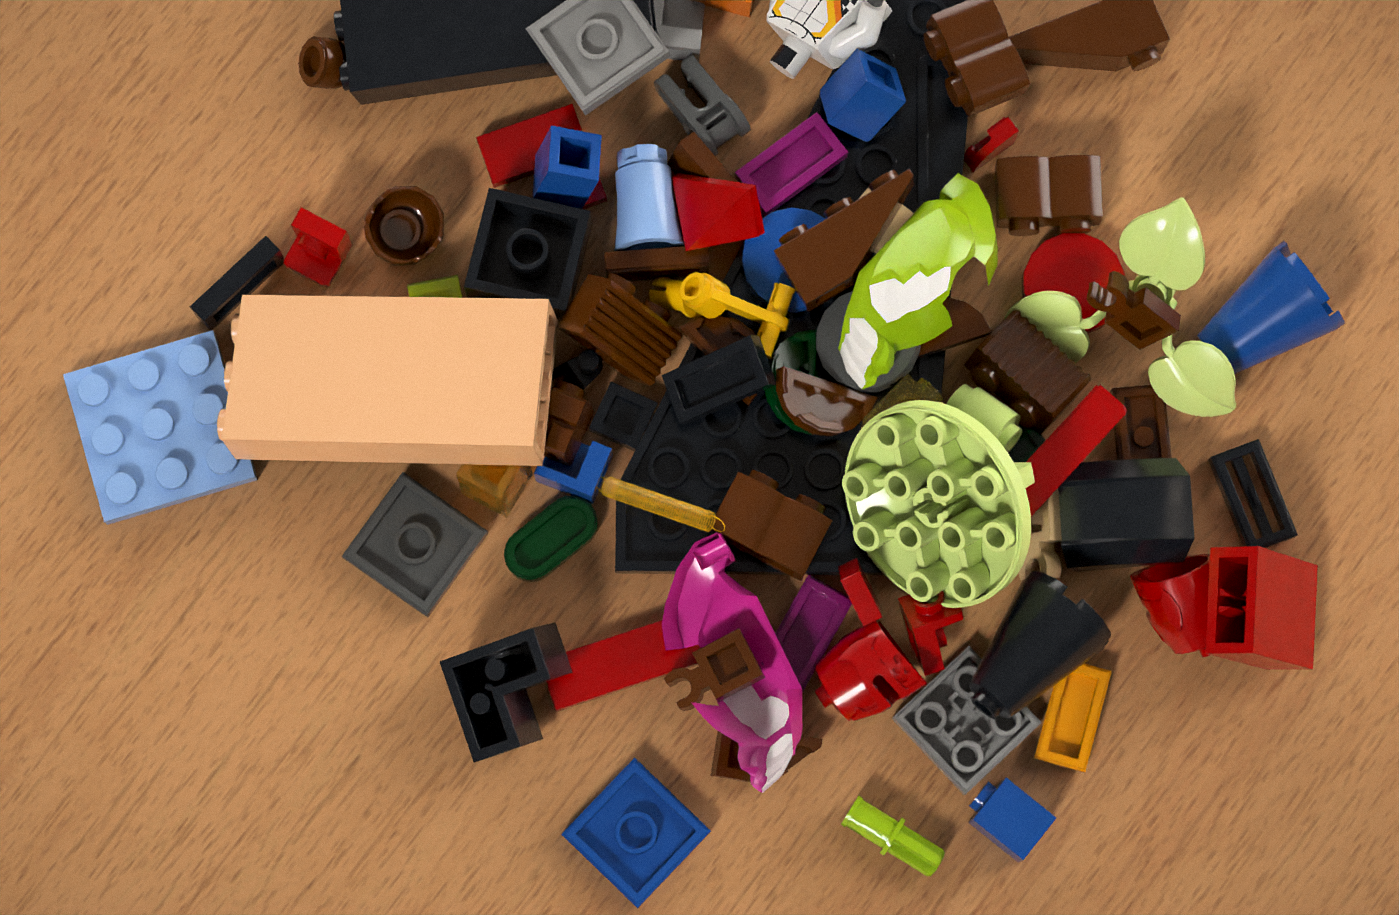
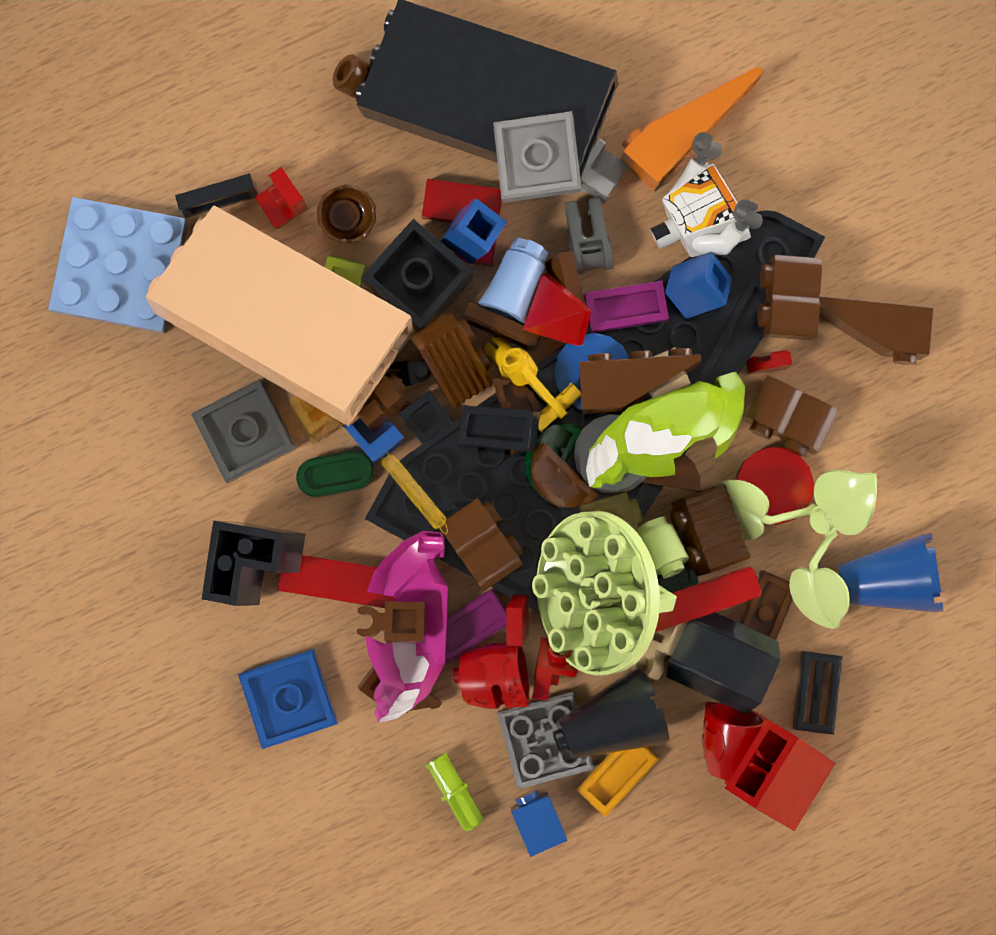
camera: 30 degrees right, 5 degrees up
(1136, 316) = (804, 533): reddish brown plate -> none

